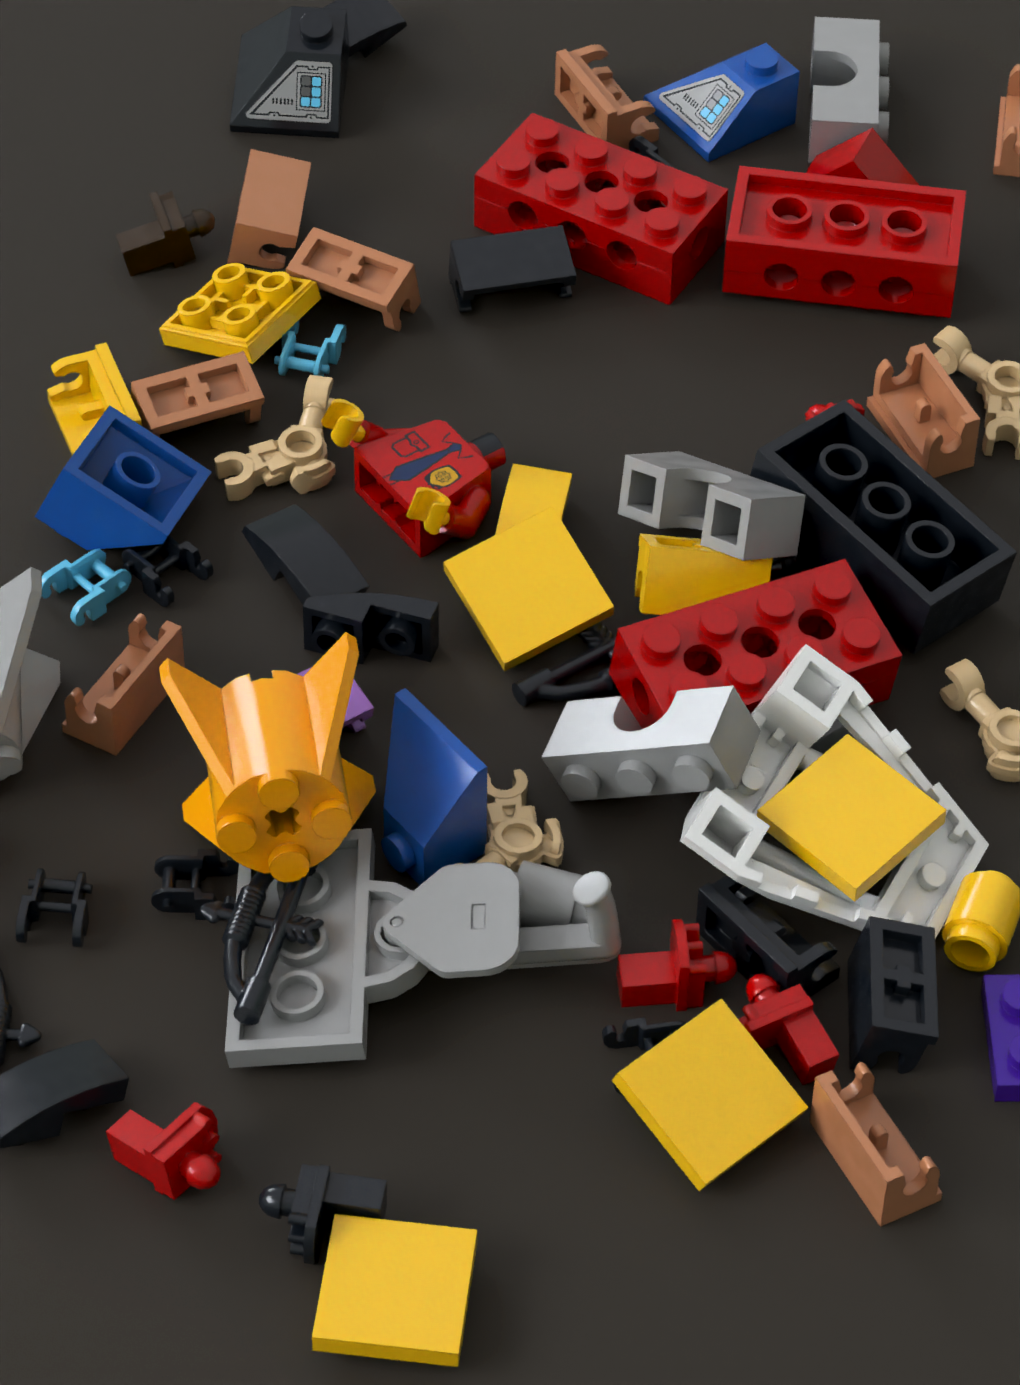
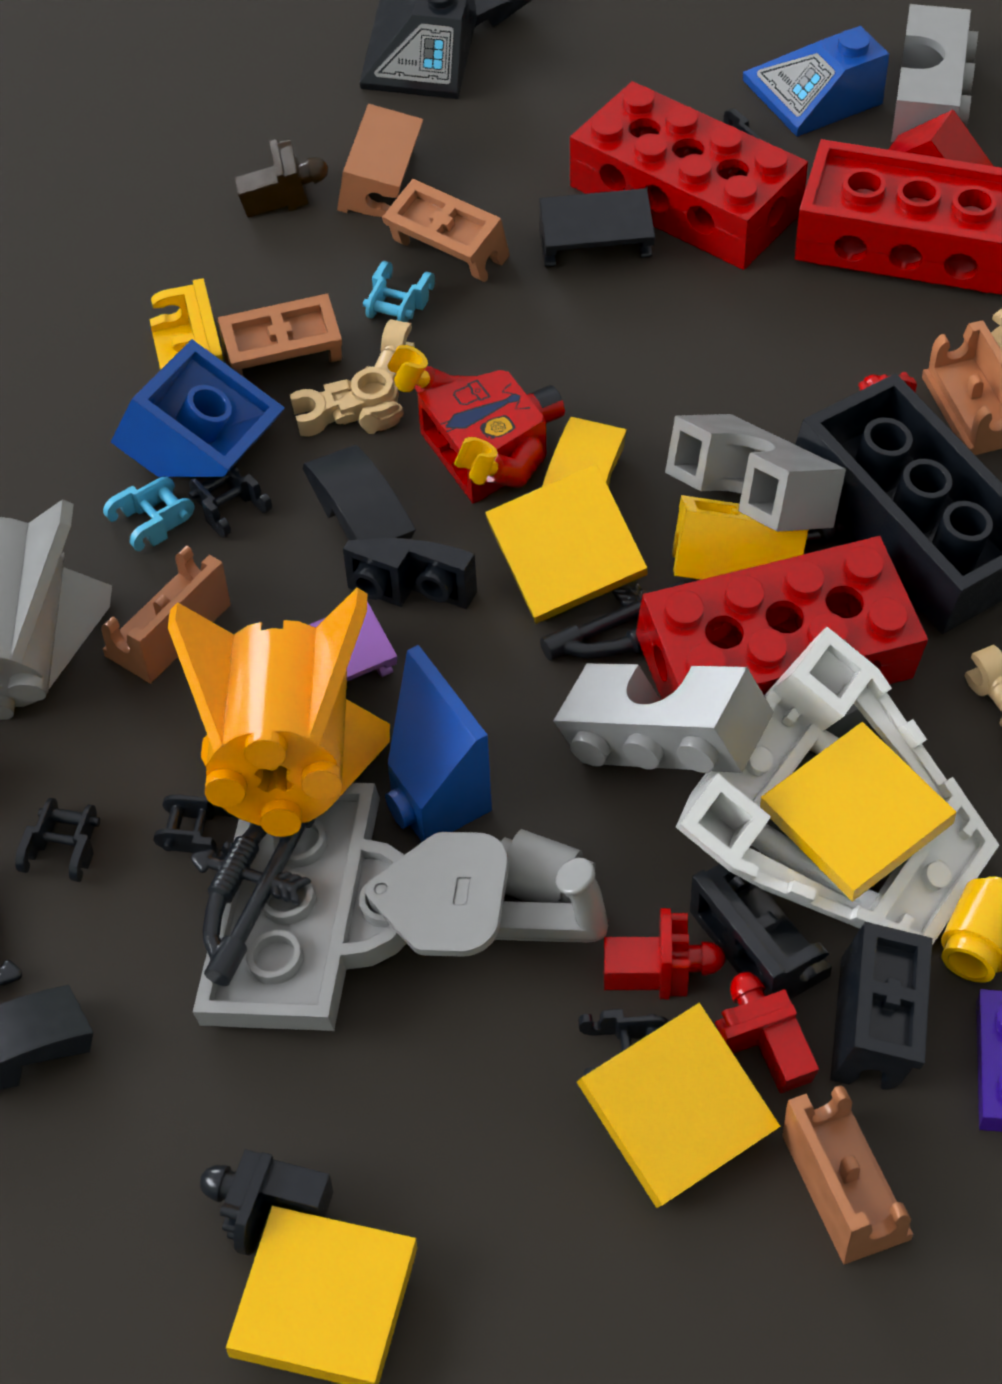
camera: 10 degrees right, 5 degrees up
(170, 1156) = (124, 1123): red piece -> none
(239, 312) = (337, 256): yellow tile -> none
(515, 829) = (518, 793): tan piece -> none
(598, 100) = (700, 74): nougat hinge -> none

